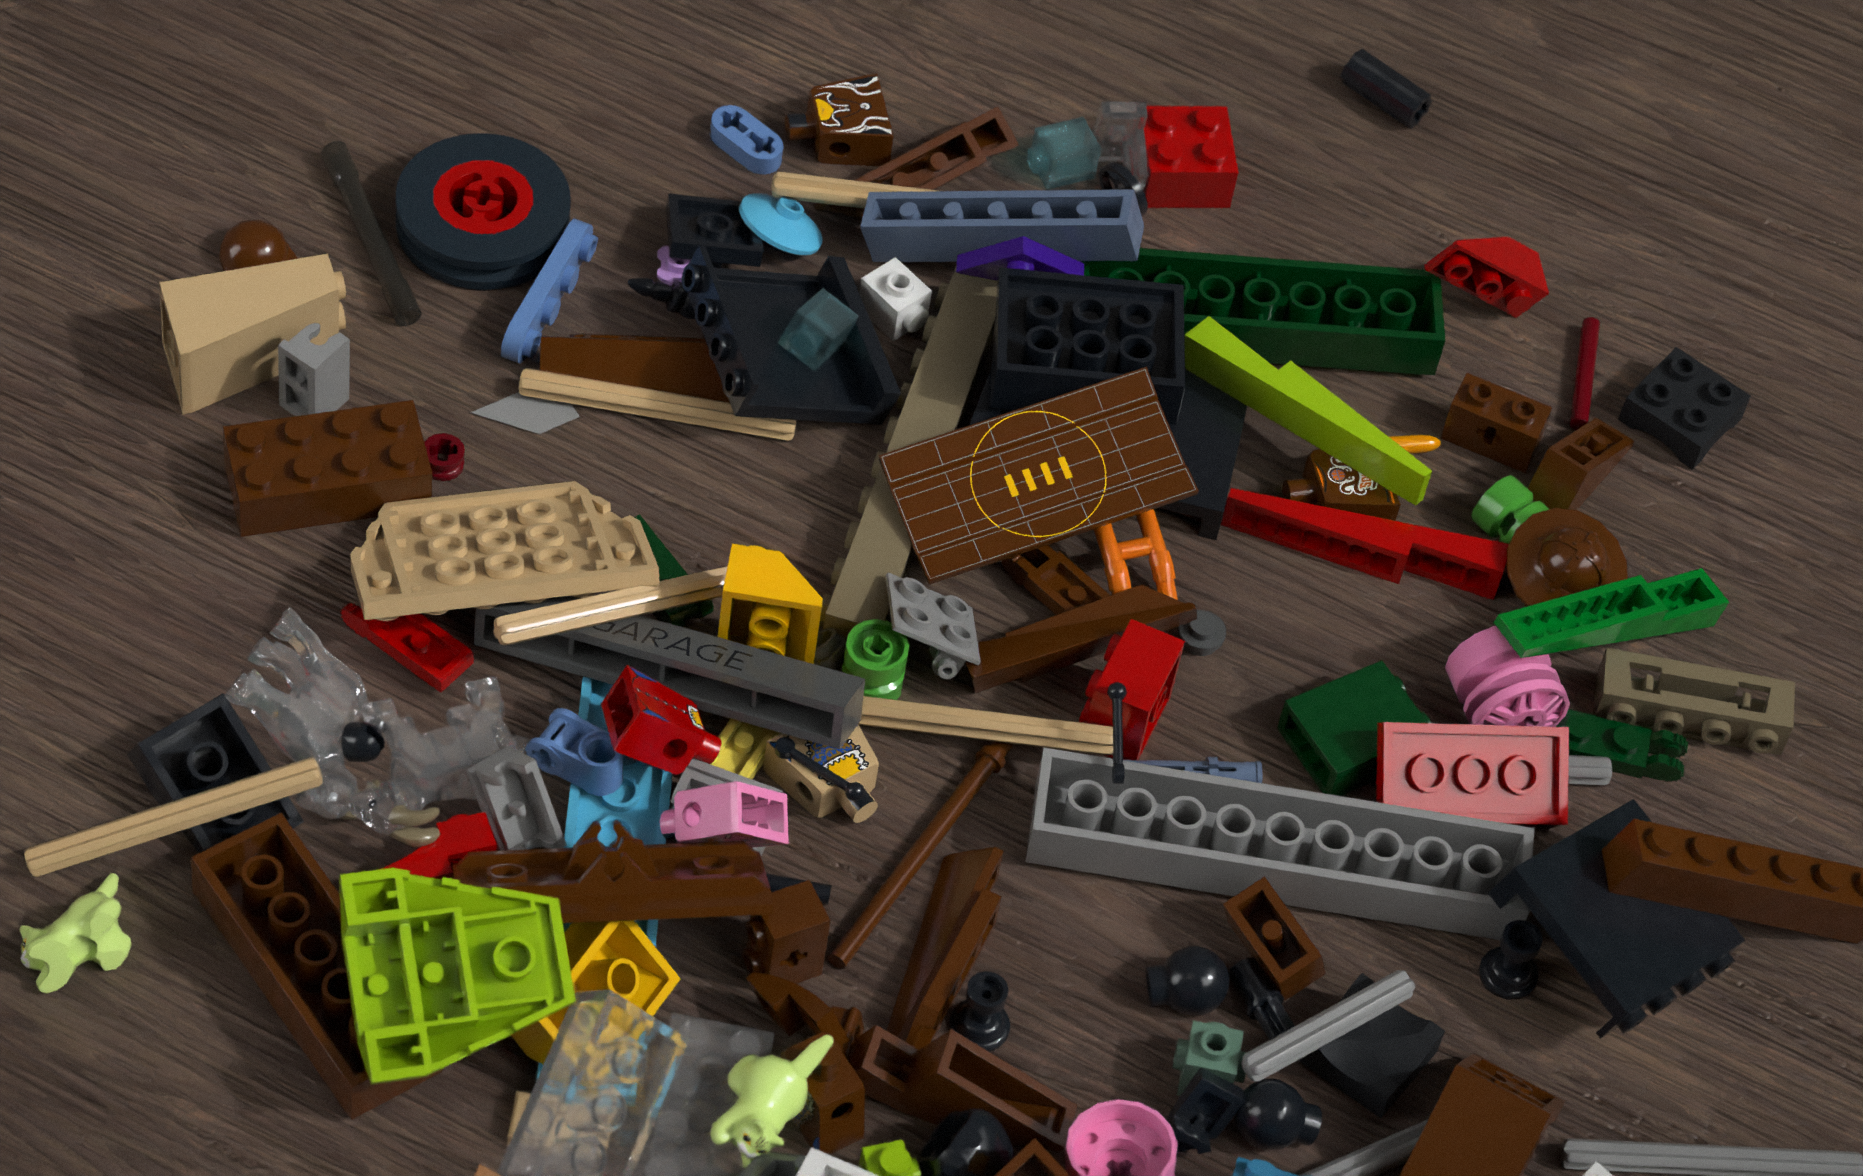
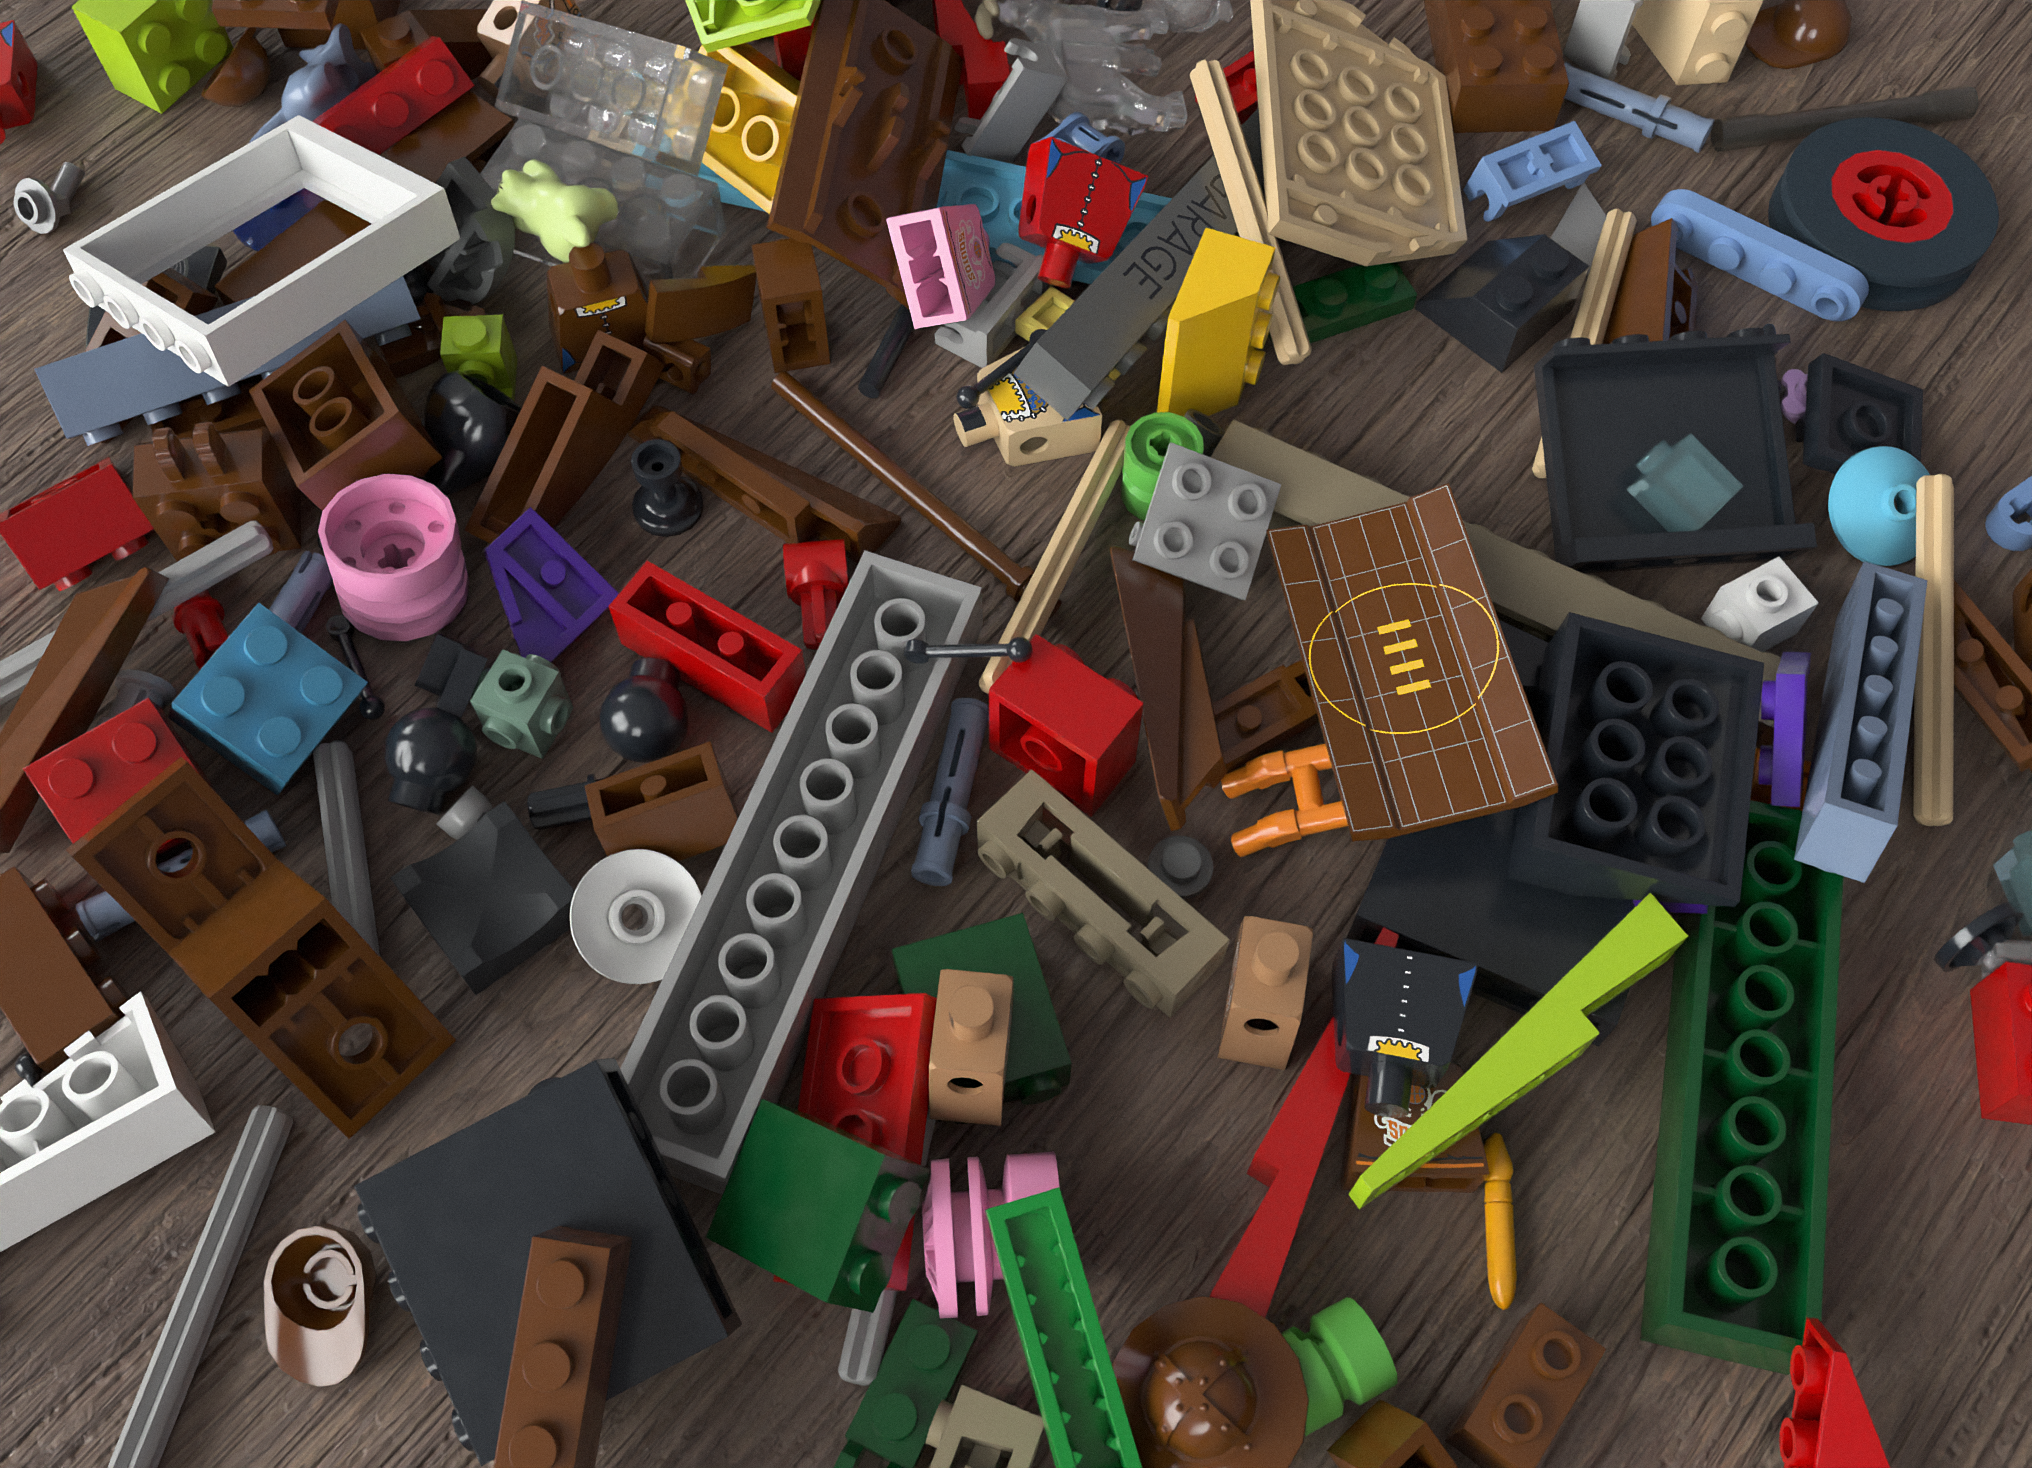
camera: 110 degrees right, 10 degrees up
(398, 359) = (1688, 128): none -> sand blue pin
(445, 444) = (1511, 127): dark red bush -> none
(494, 436) = (1532, 169): none -> medium blue hinge
(630, 453) = (1506, 296): none -> black slope
(1032, 890) = (816, 581): none -> red axle
(1107, 1070) = (545, 587): none -> dark purple wing
(1127, 939) = (709, 645): none -> red brick
(1201, 714) = (1177, 943): none -> dark tan brick
(1283, 563) = (1266, 984): none -> medium nougat torso
(1304, 474) = (1397, 1018): none -> black torso
(1319, 1086) = (465, 813): none -> light grey hinge
(1327, 1025) = (502, 824): light grey axle -> none
(1354, 947) = (655, 886): none -> white dish
(1401, 689) = (971, 1043): none -> medium nougat torso
(1533, 769) = (818, 1206): none -> dark green brick
(1678, 1073) = (319, 1304): none -> cap

